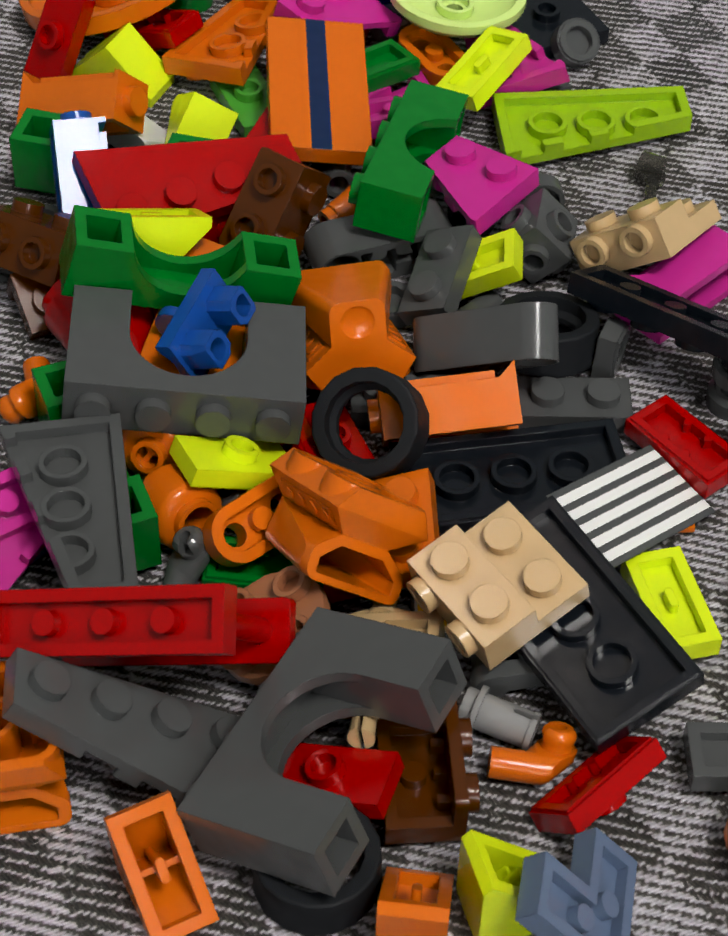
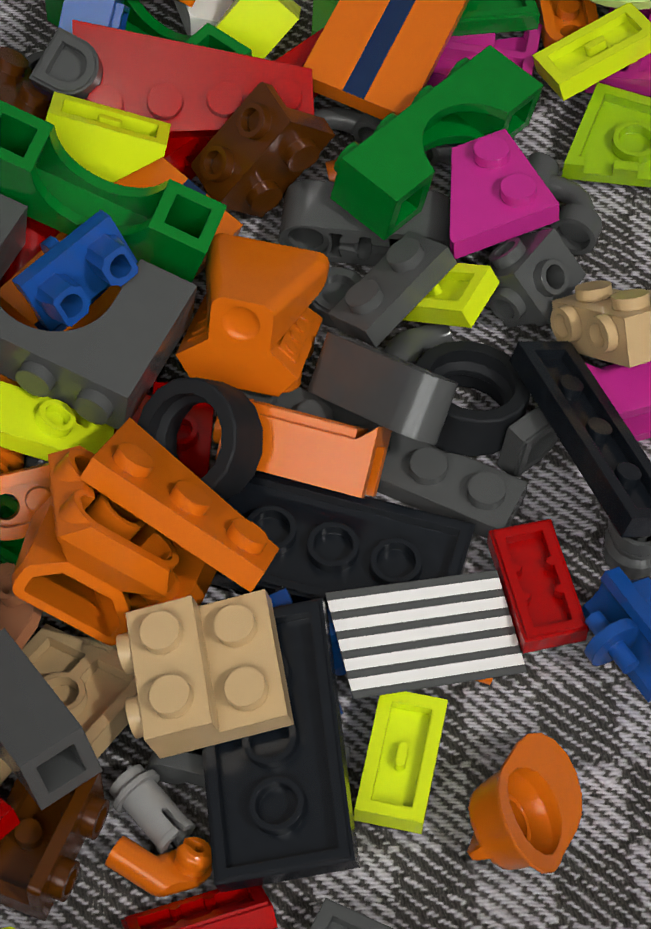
camera: 25 degrees right, 10 degrees up
(91, 185) = (68, 66): none -> dark grey tile
(403, 465) = (177, 503): none -> orange wing

